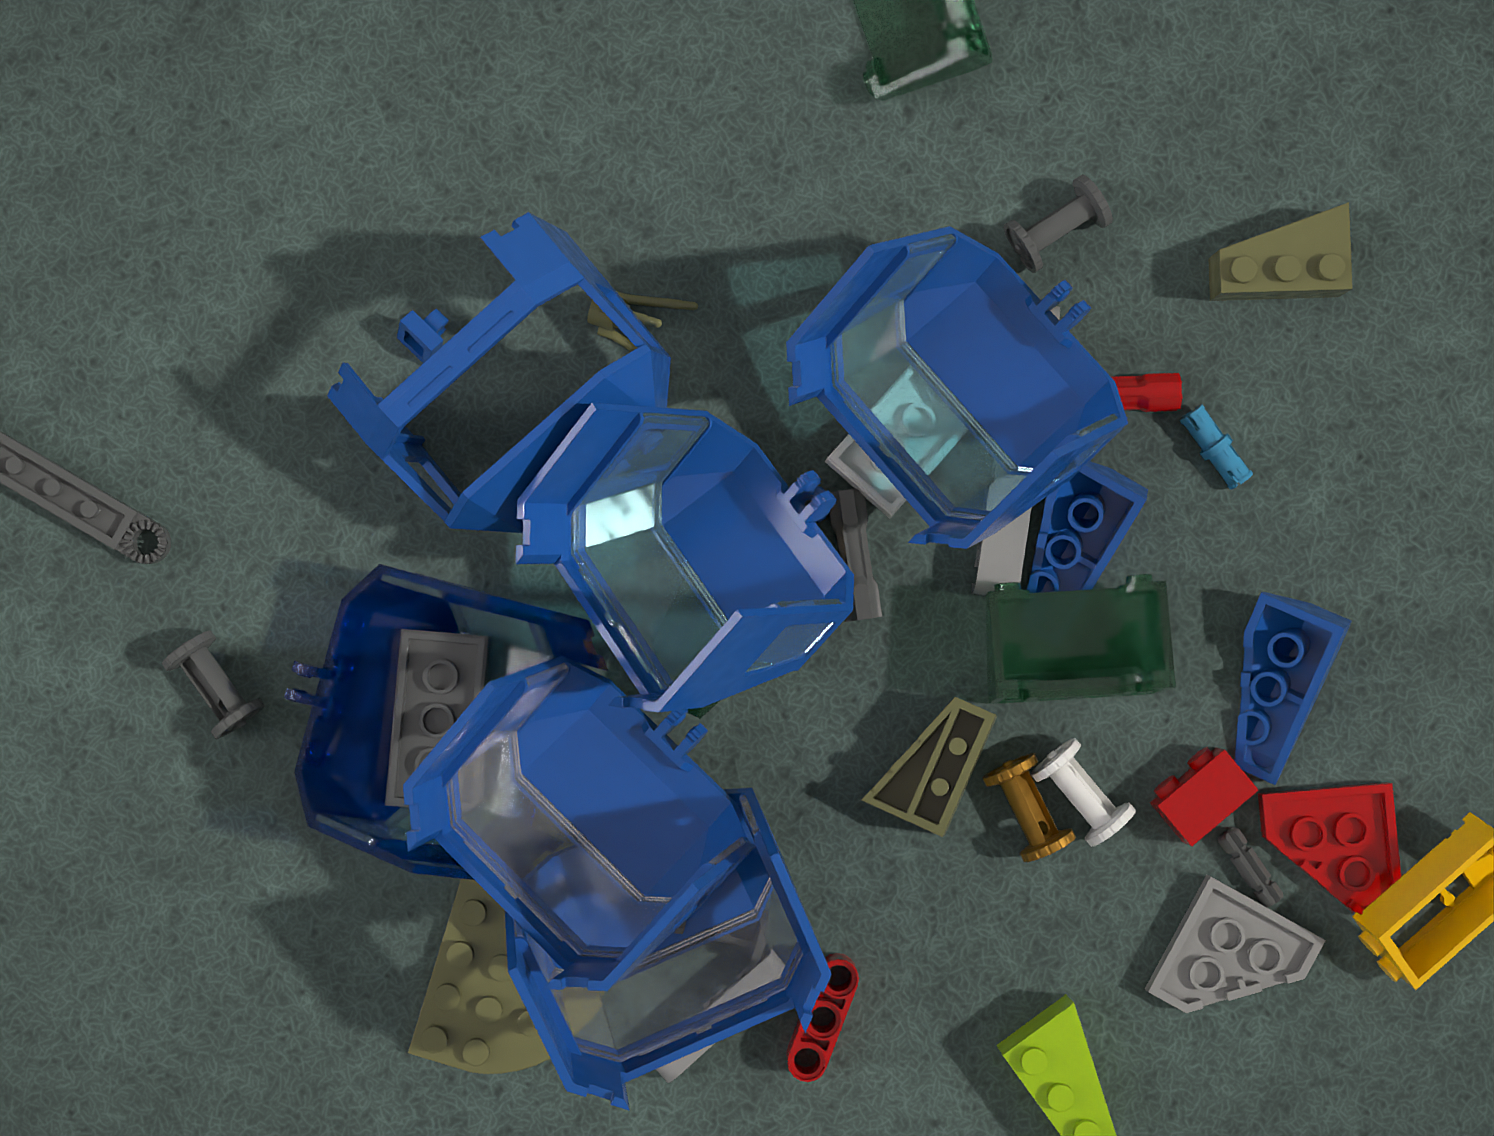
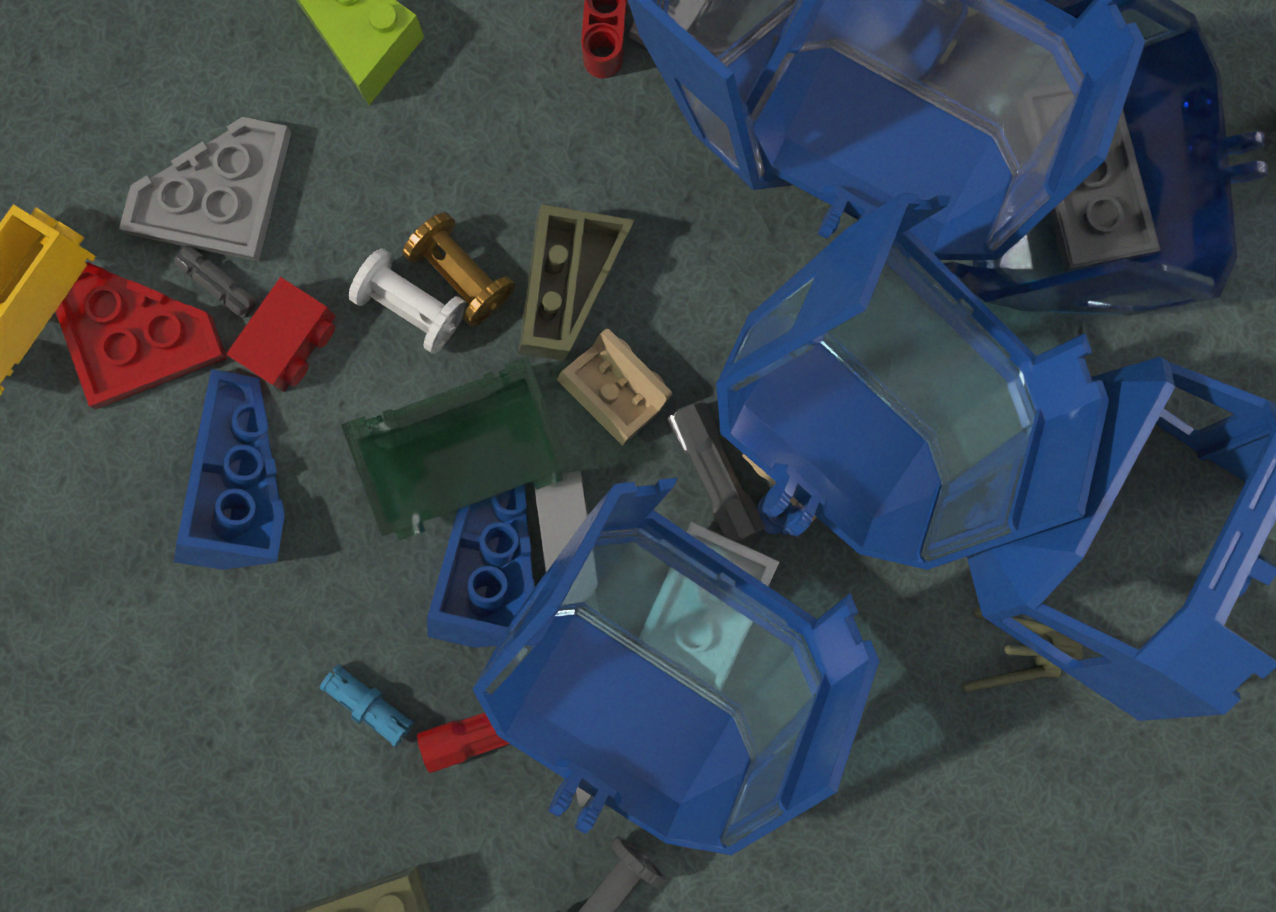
camera: 170 degrees right, 5 degrees down
(920, 658) = (615, 387): none -> tan bracket

